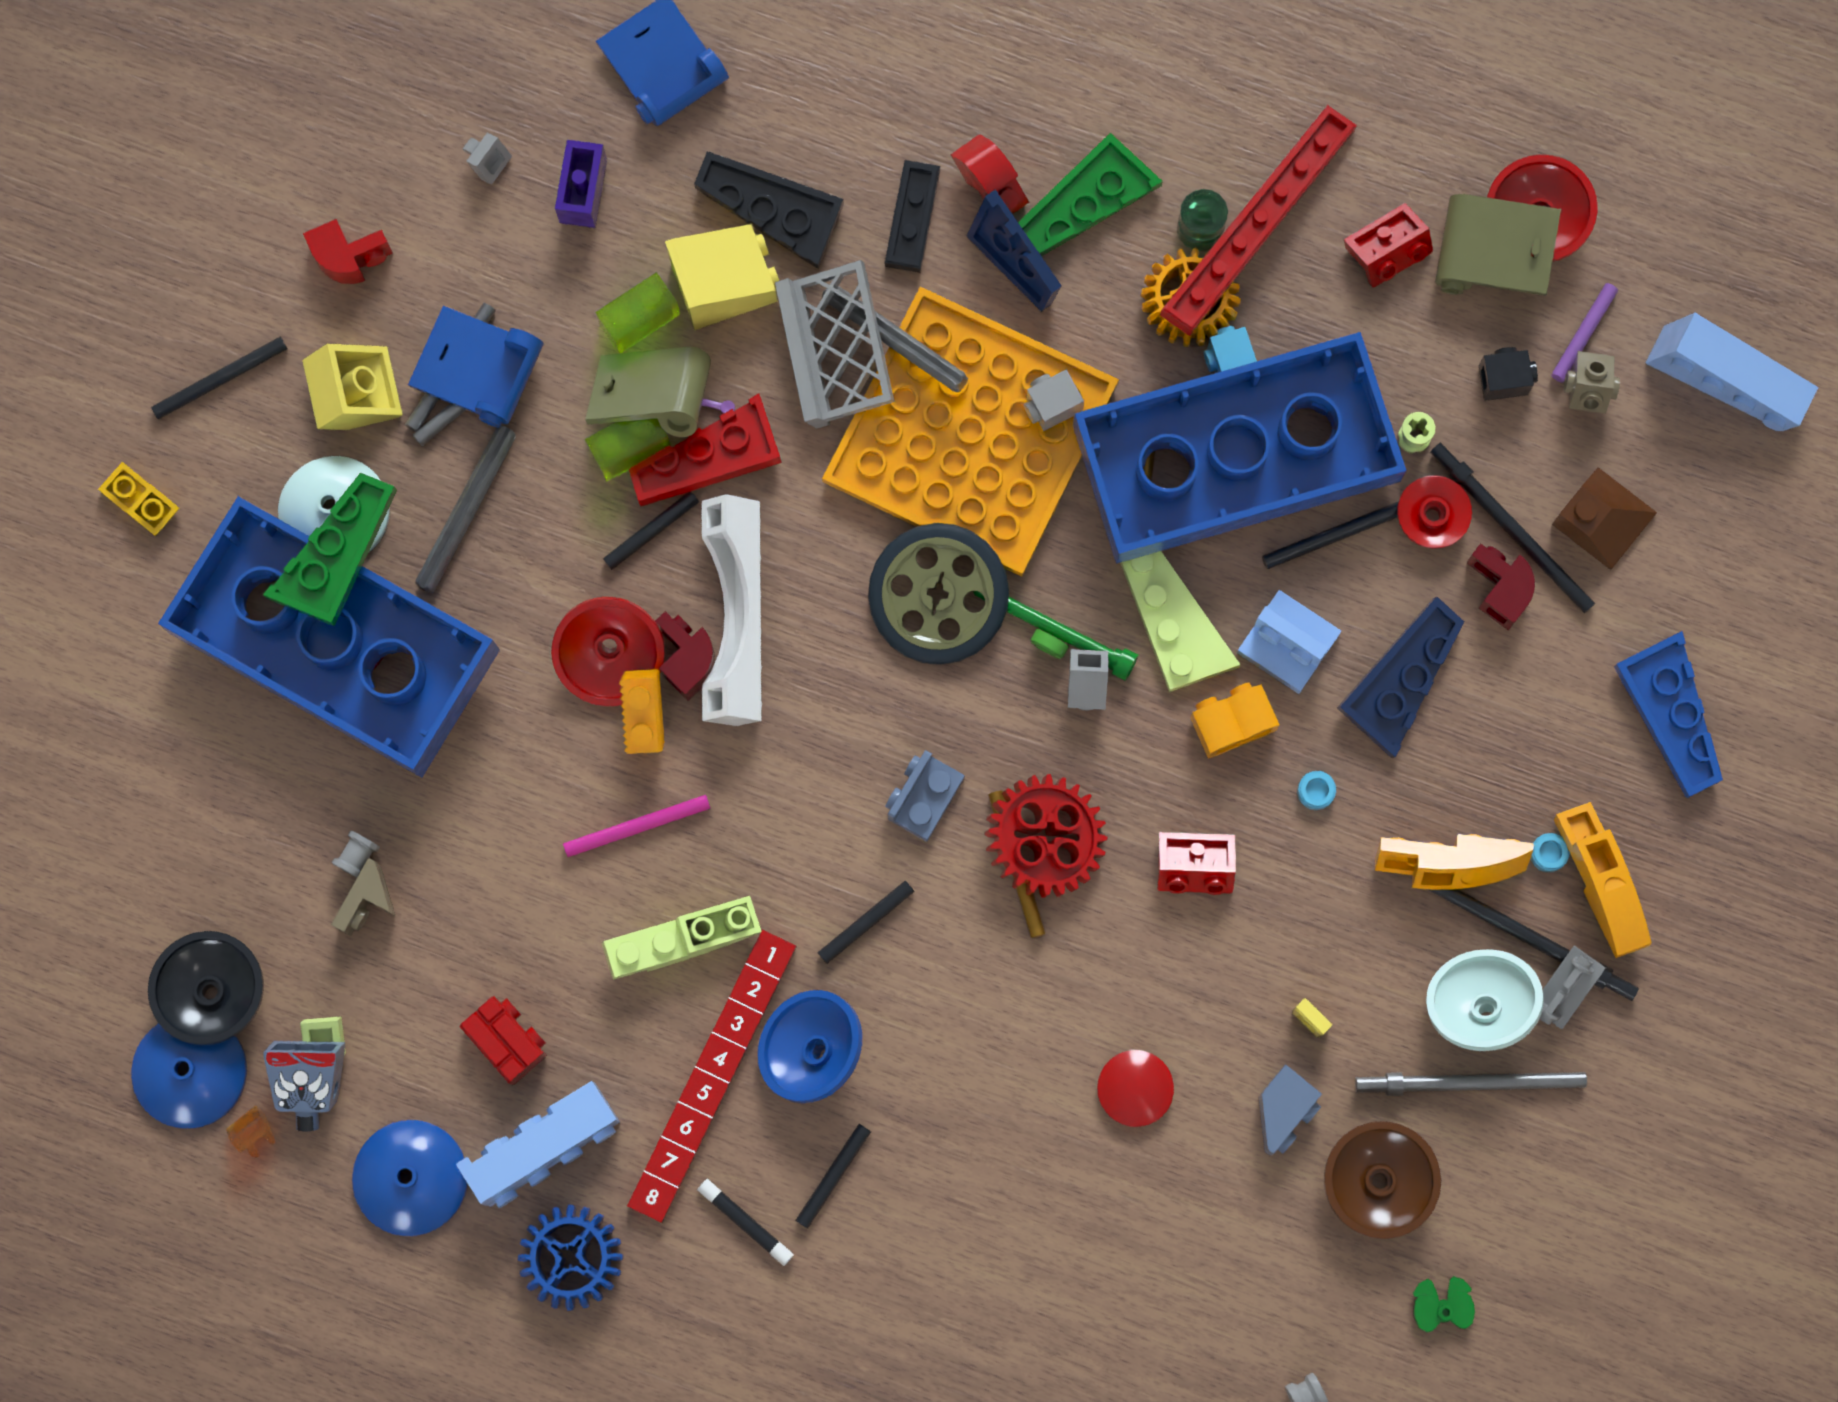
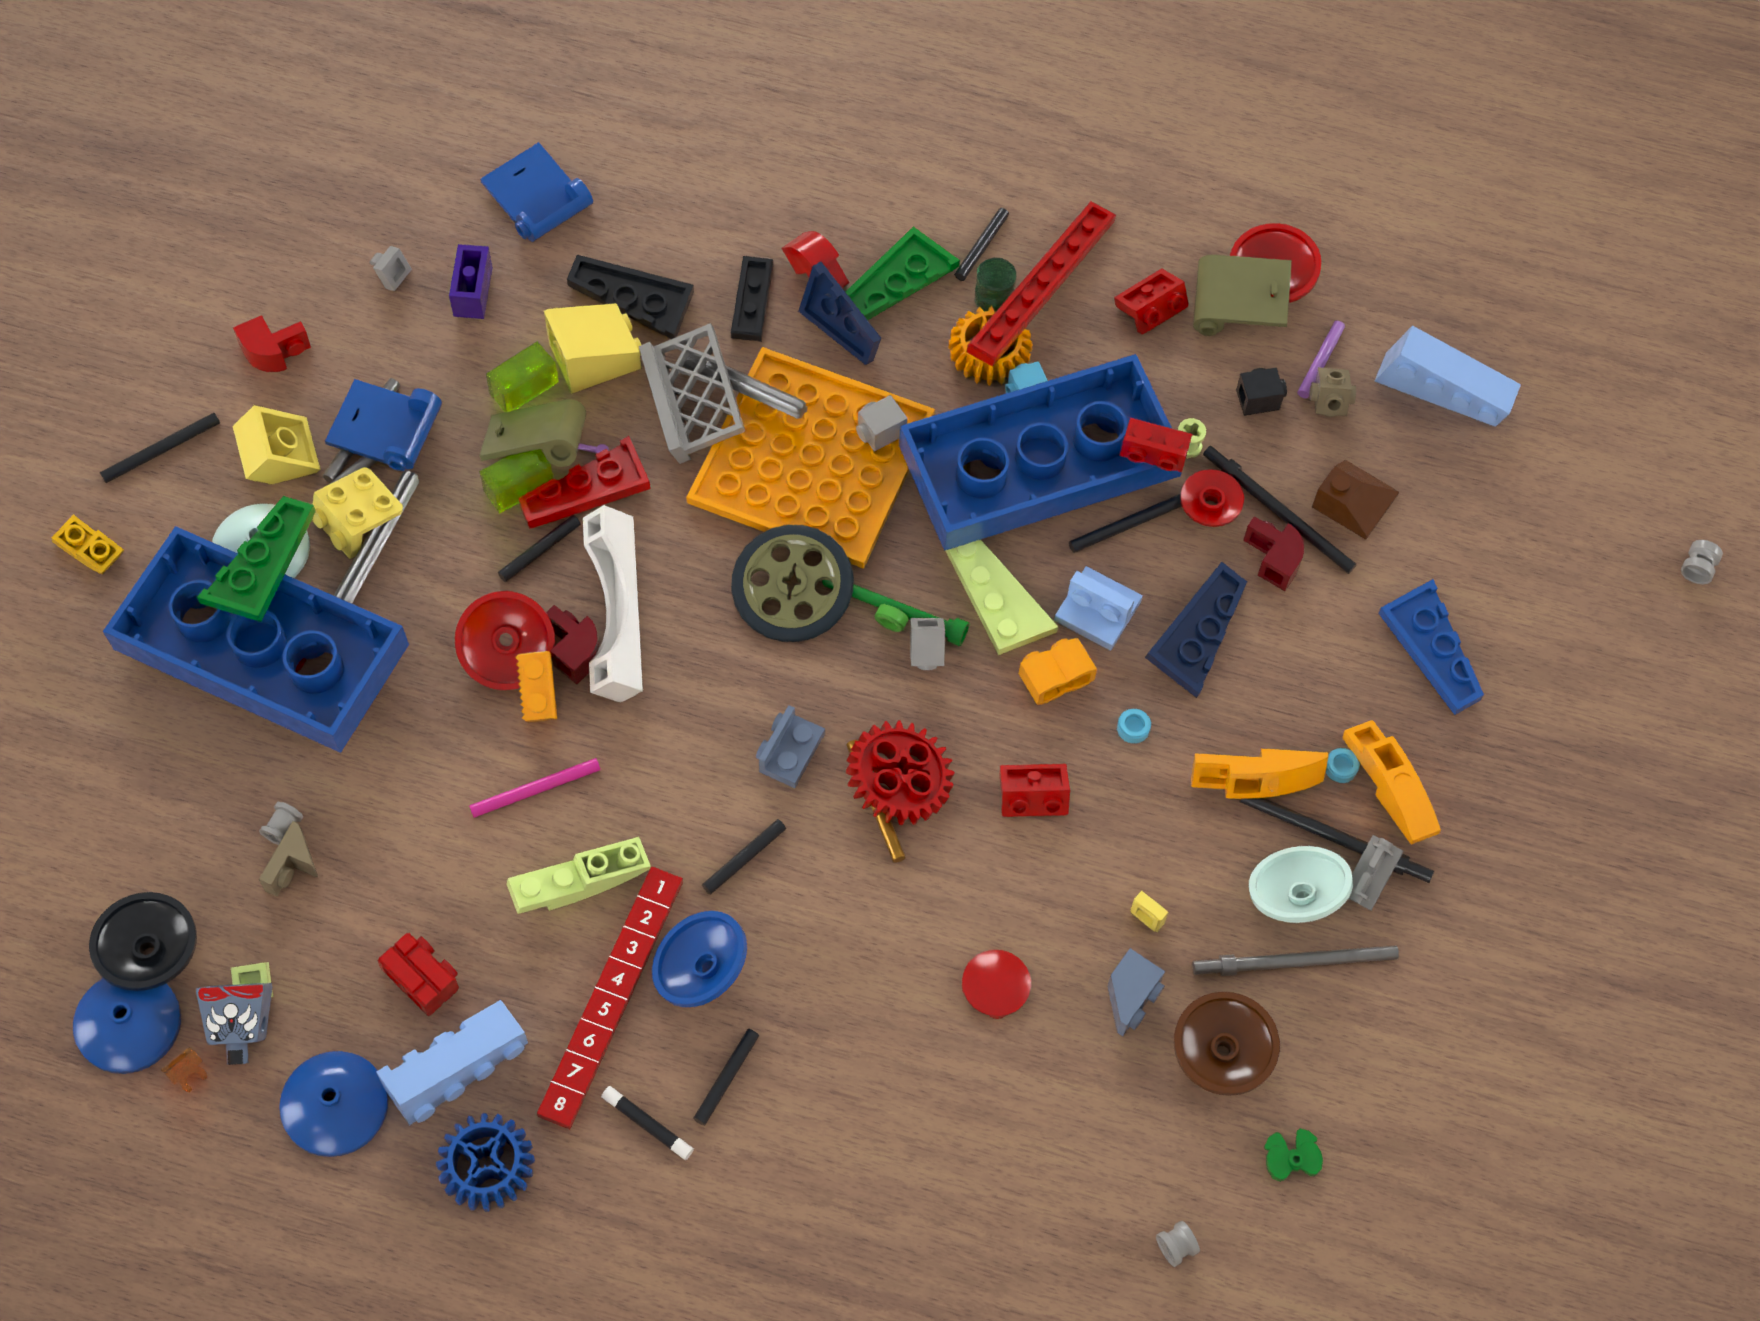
camera: 10 degrees left, 15 degrees down
(441, 473) = (353, 508): none -> light yellow bracket
(1191, 156) = (981, 244): none -> black bar
(1372, 456) = (1155, 445): none -> red bracket

